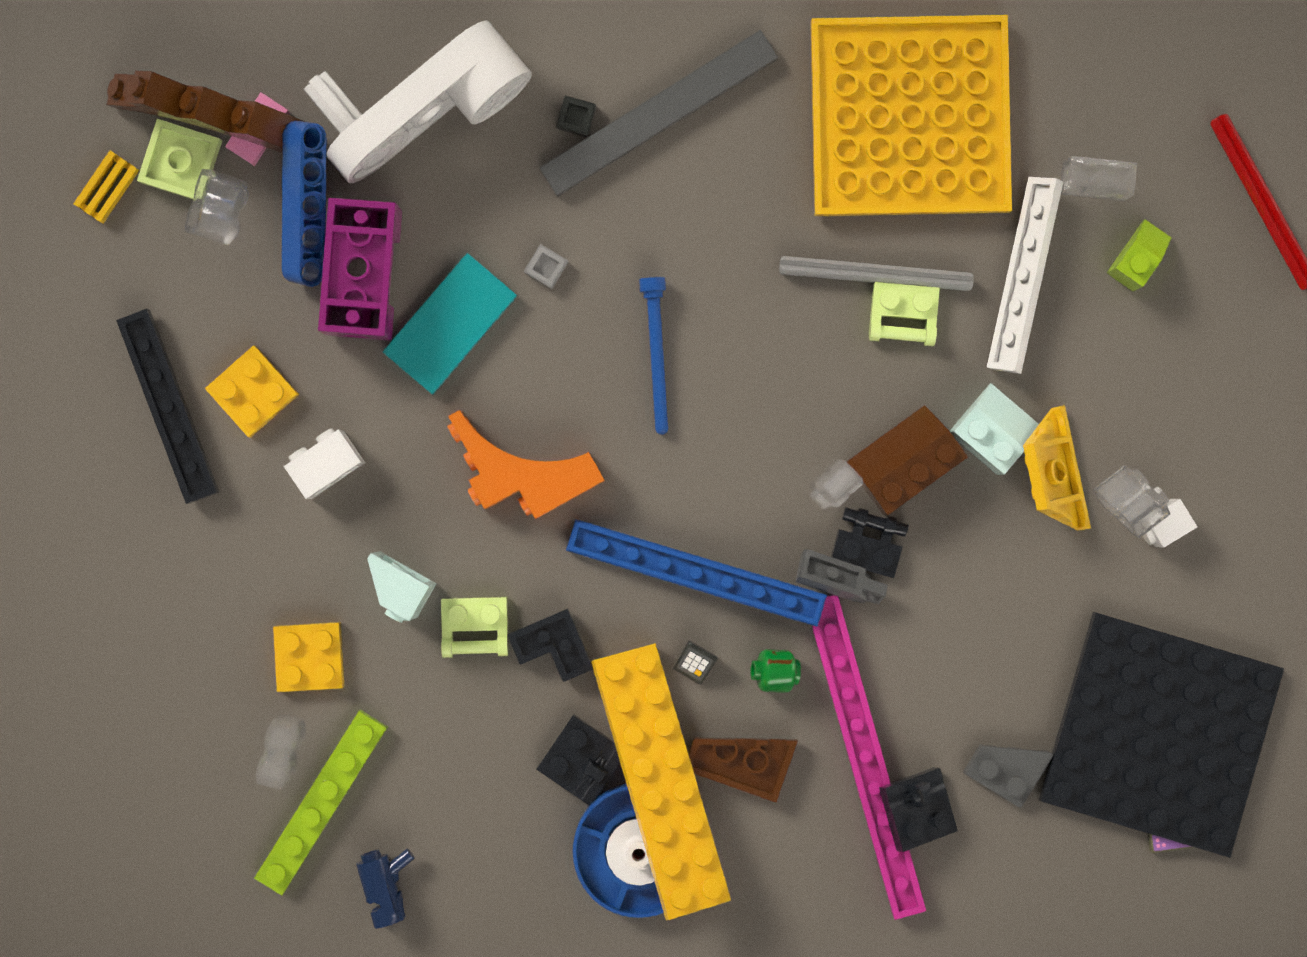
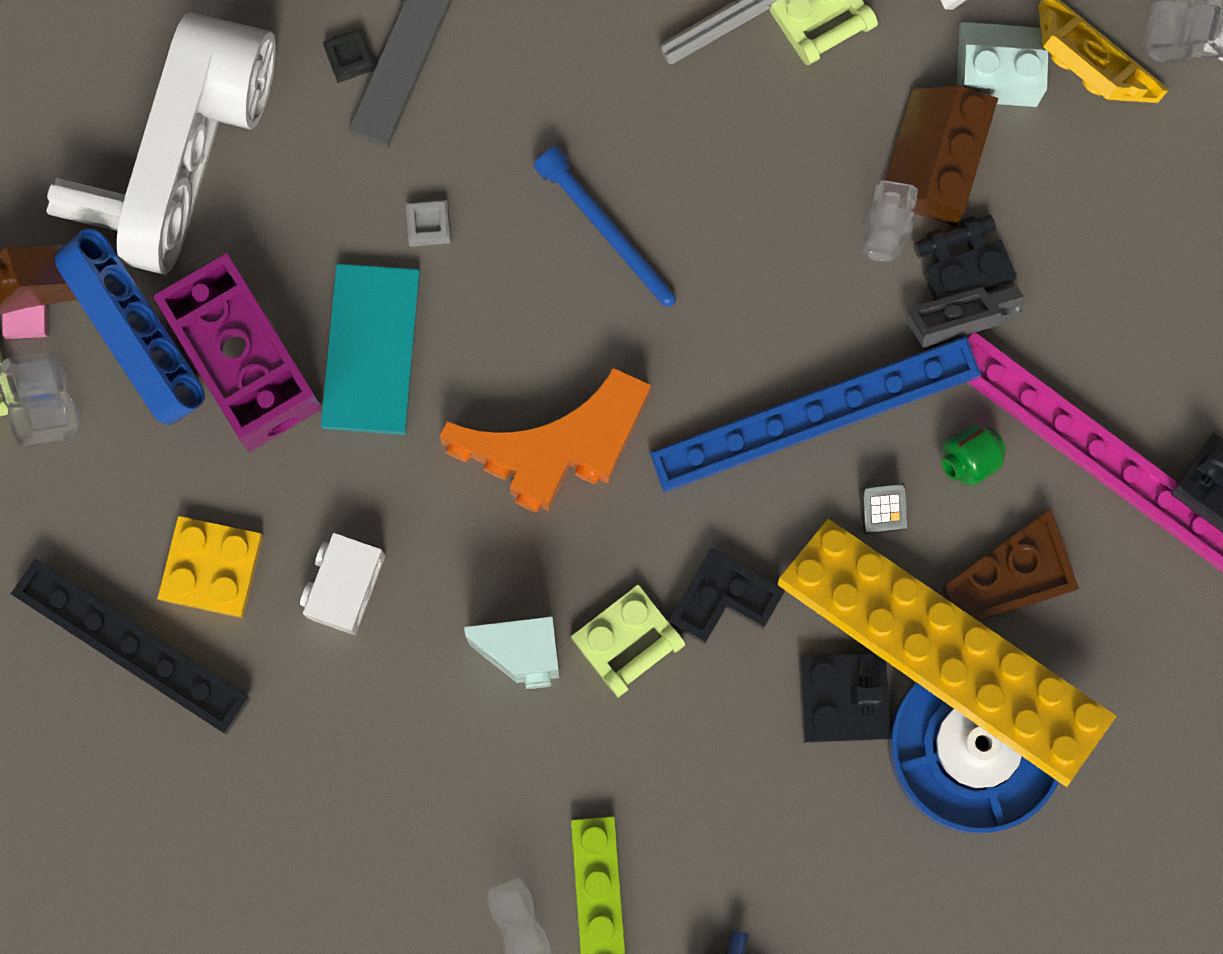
camera: 45 degrees left, 10 degrees down
(308, 657) = (474, 803): yellow plate -> none

